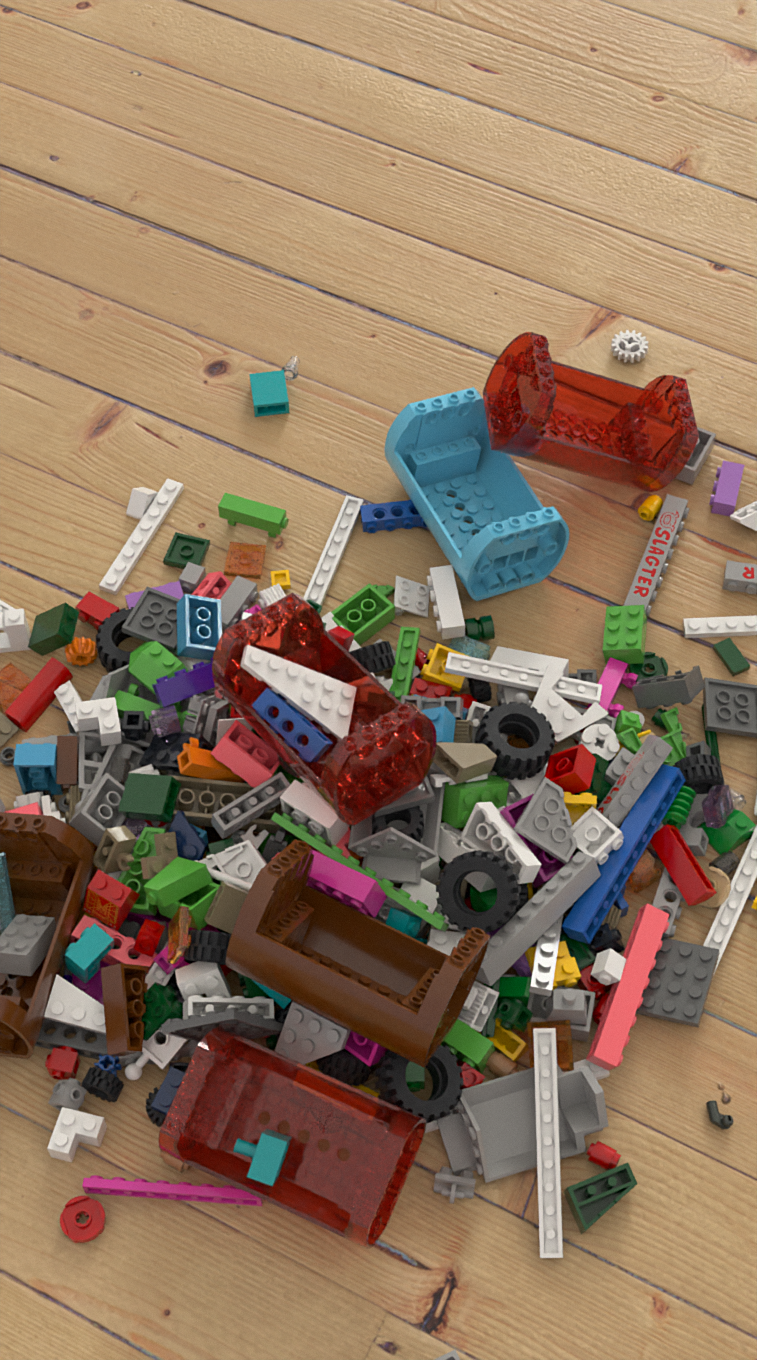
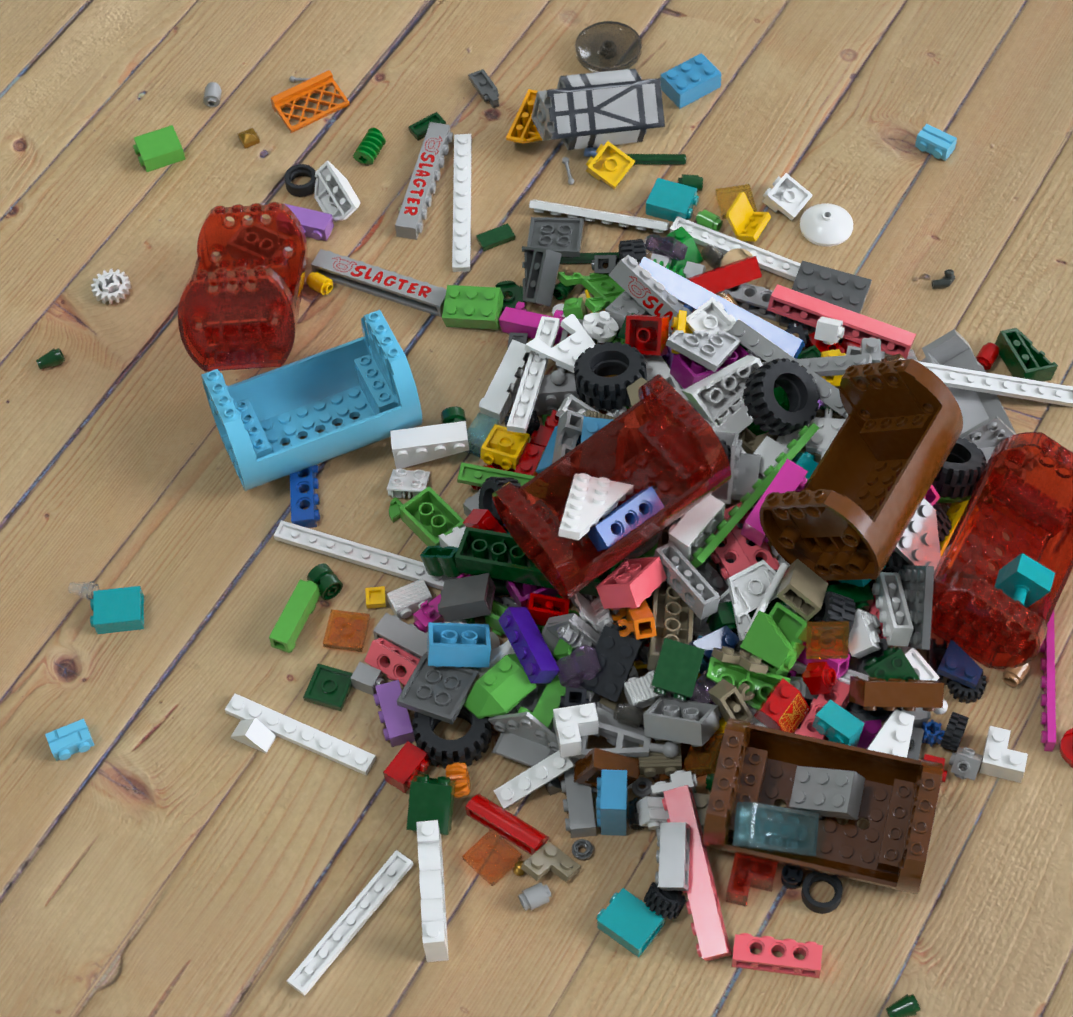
camera: 85 degrees left, 0 degrees up
(142, 375) = (70, 740): none -> medium azure brick
(297, 536) = (327, 582): none -> dark green wheel
(542, 315) = (52, 358): none -> dark green cone

